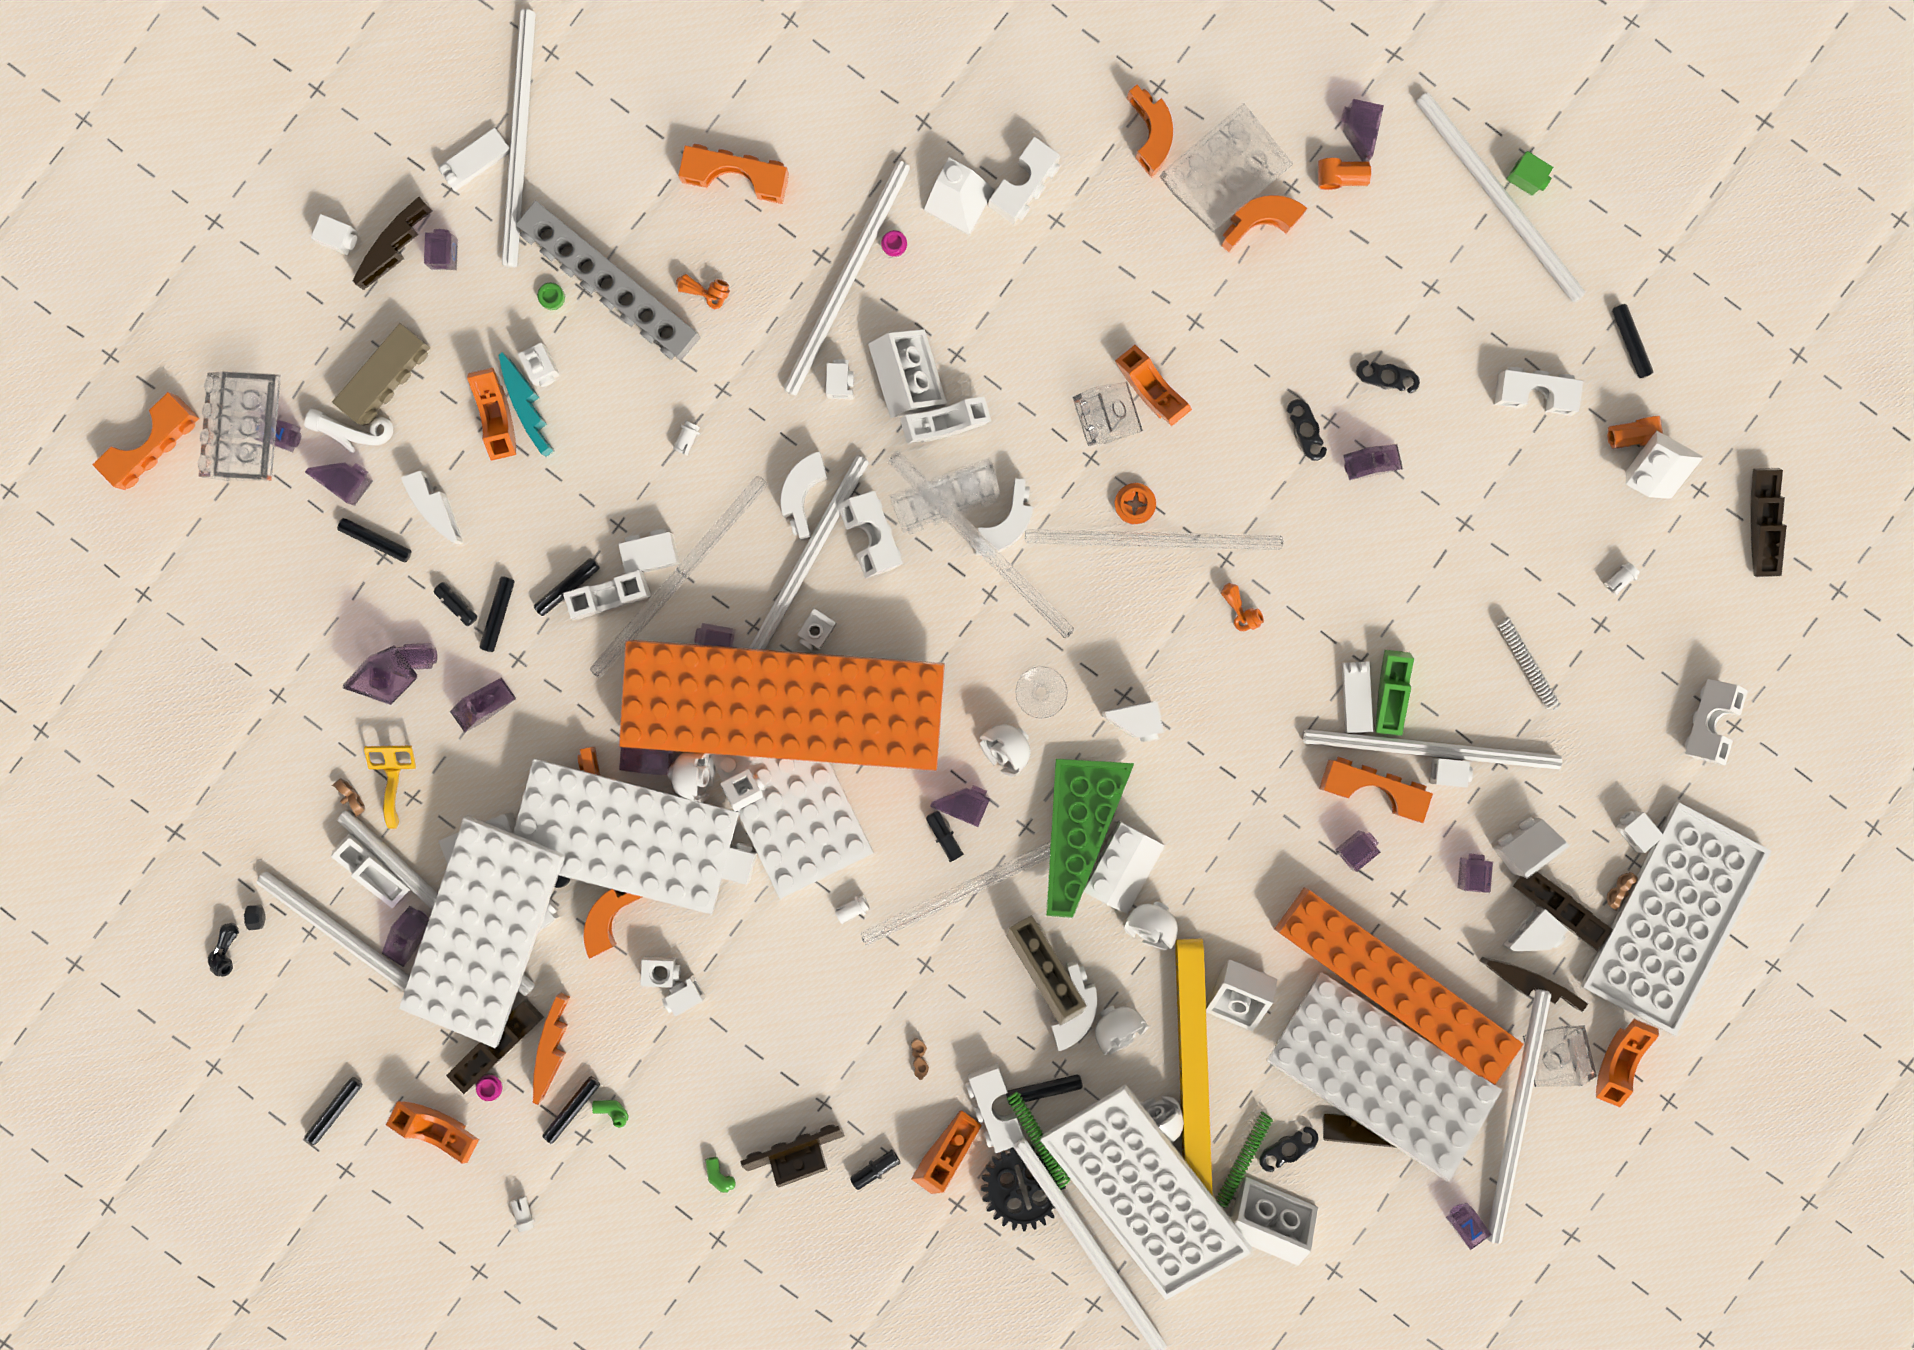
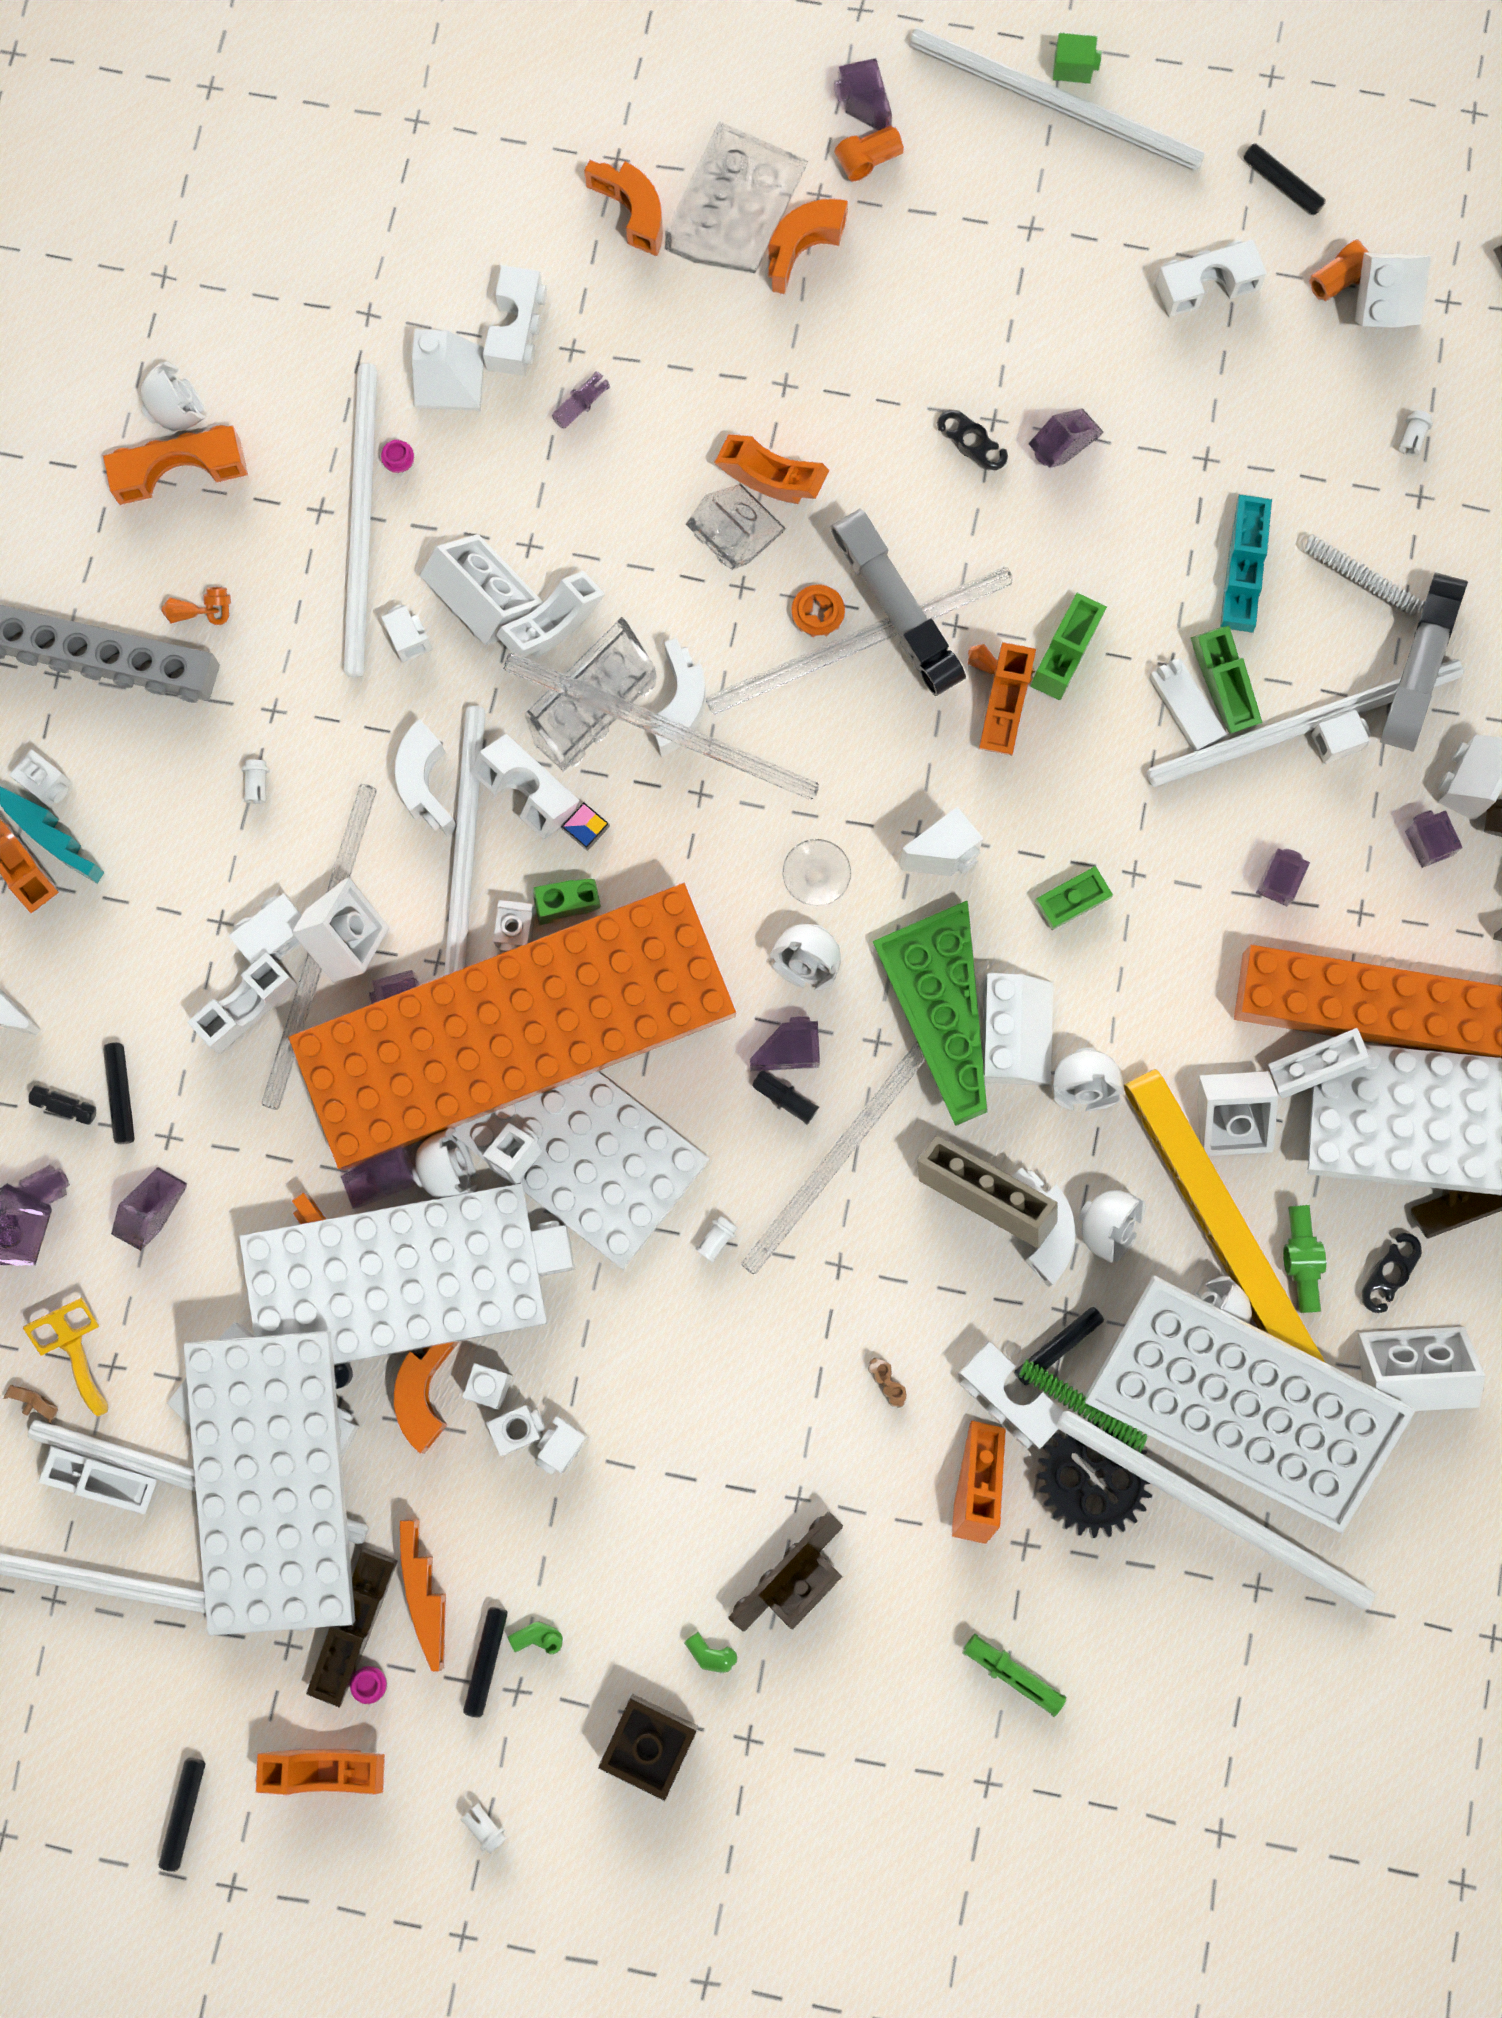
camera: 15 degrees left, 10 degrees down
(405, 936) = (176, 1541): clear purple slope -> none
(551, 296) = (21, 698): bright green tile -> none
(570, 583) = (183, 1032): black axle -> none
(650, 1216) = (648, 1747): none -> dark brown brick
(654, 934) = (487, 1386): none -> white brick
(696, 578) = (341, 931): none -> white slope
(752, 124) = (169, 400): none -> white cylinder
(861, 627) = (565, 899): none -> bright green leg
(875, 1169) = (901, 1549): black axle -> none
(899, 580) = (585, 826): none -> tile
(902, 1274) = (1020, 1679): none -> bright green pin
(1043, 265) = (580, 400): none -> clear purple axle
(1194, 558) = (919, 635): none -> light grey piece
(1208, 795) = (1073, 898): none -> bright green plate
(1231, 636) = (1007, 698): none -> orange arch
(1235, 1113) = (1304, 1259): none -> bright green pin
(1253, 1150) = (1342, 1317): bright green piece -> none
(1296, 615) = (1068, 646): none -> bright green slope
(1313, 992) = (1319, 1063): none -> white hinge
(1376, 380) = (1044, 331): black piece -> none
(1406, 800) = (1307, 791): orange arch -> none
(1451, 615) = (1246, 563): none -> teal slope
(1535, 750) = (1424, 662): none -> light grey piece

